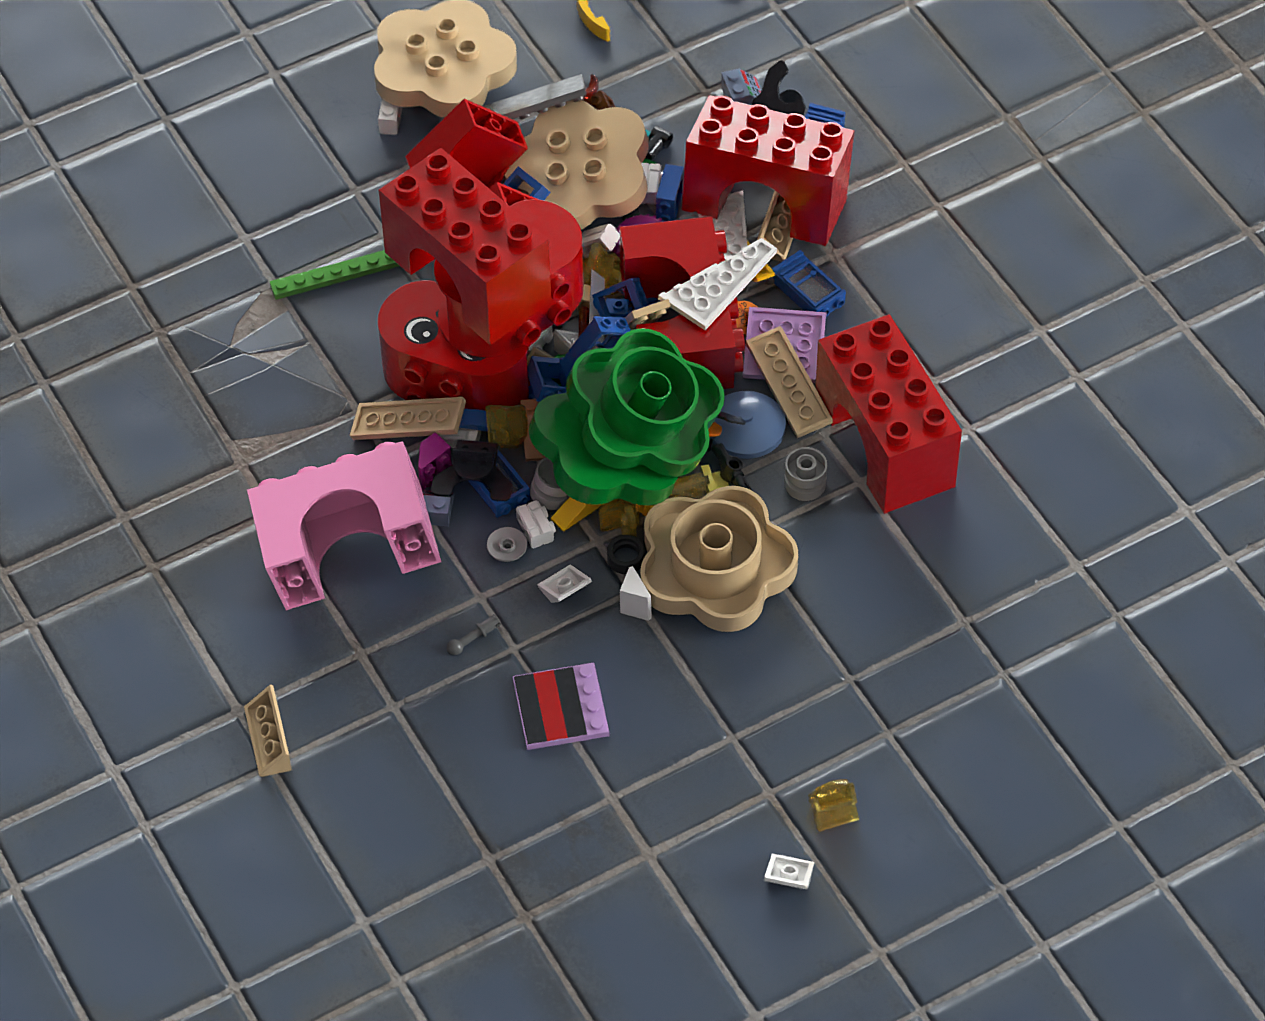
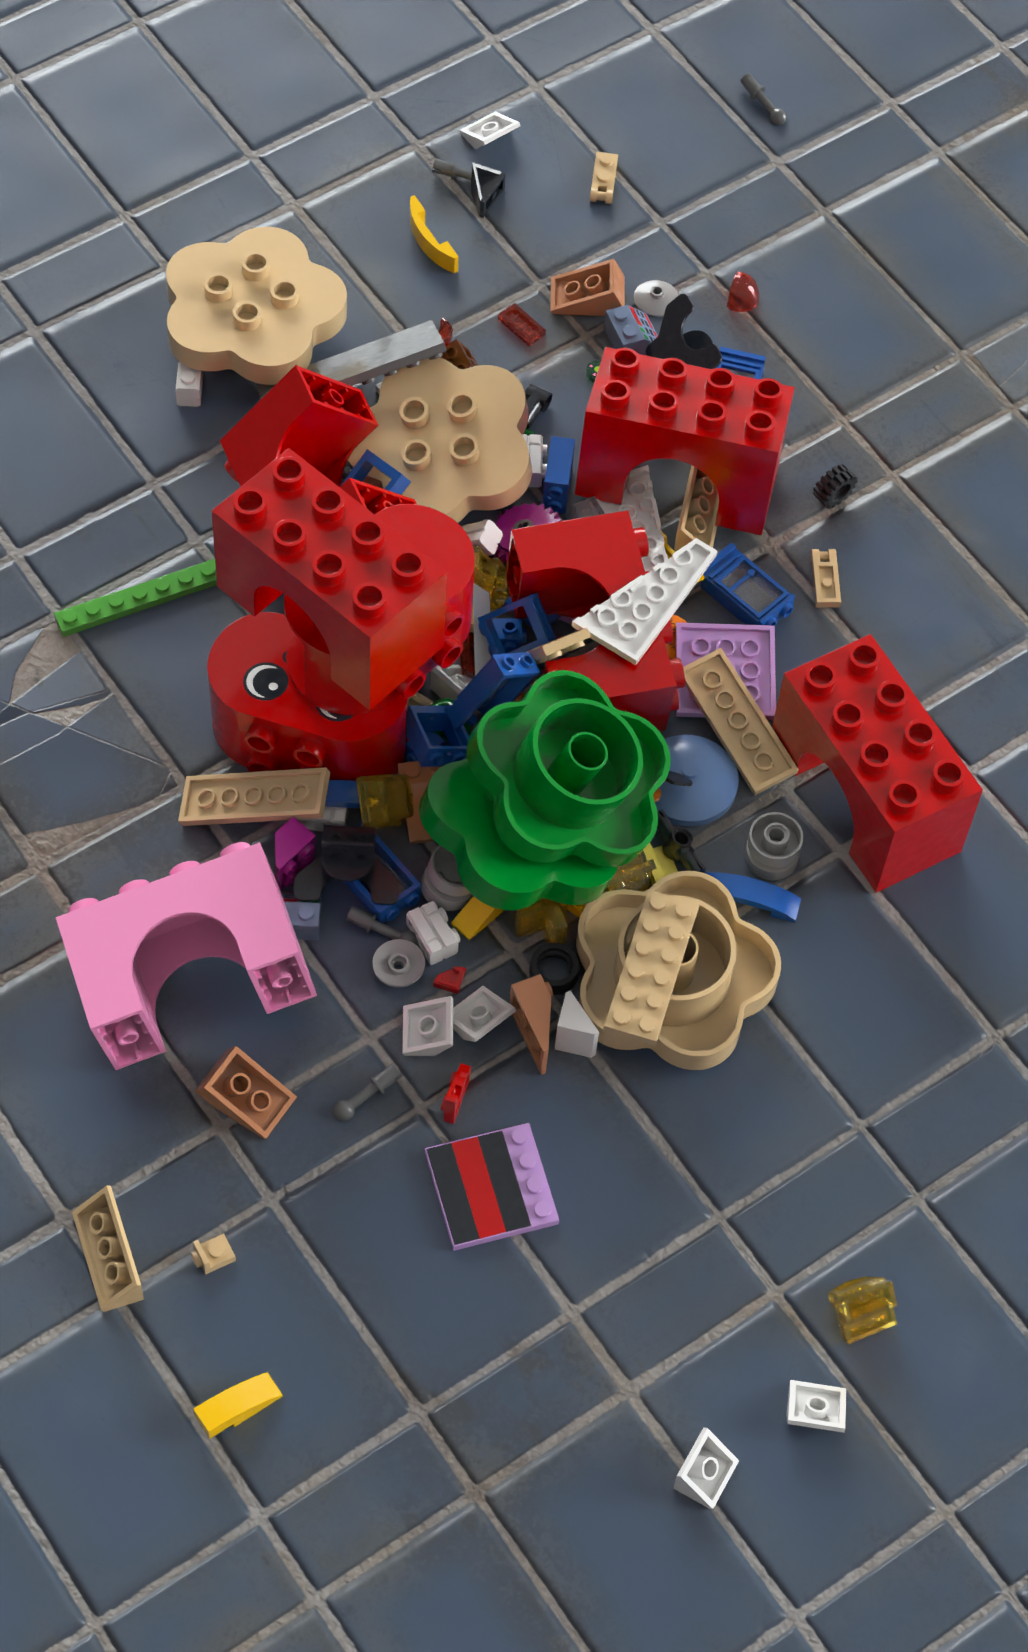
camera: 10 degrees left, 5 degrees up
(345, 741) = (212, 1254): none -> tan bracket
(352, 844) = (236, 1404): none -> yellow slope
(381, 629) = (246, 1092): none -> nougat slope
(487, 514) = (368, 922): none -> dark grey pin
(524, 591) = (428, 1027): none -> white slope
(539, 638) = (455, 1094): none -> red wing
(546, 559) = (450, 980): none -> red tile
(604, 585) = (532, 1016): none -> nougat slope
(655, 81) = (521, 324): none -> clear red tile
(694, 549) = (651, 967): none -> tan plate
(698, 909) = (706, 1470): none -> white slope
(711, 57) = (588, 290): none -> nougat slope
(760, 63) = (653, 297): none -> light grey dish
(793, 509) = (760, 895): none -> blue slope
(834, 63) = (743, 293): none -> clear red helmet
(873, 280) = (825, 578): none -> tan plate
(888, 211) = (835, 486): none -> black tyre

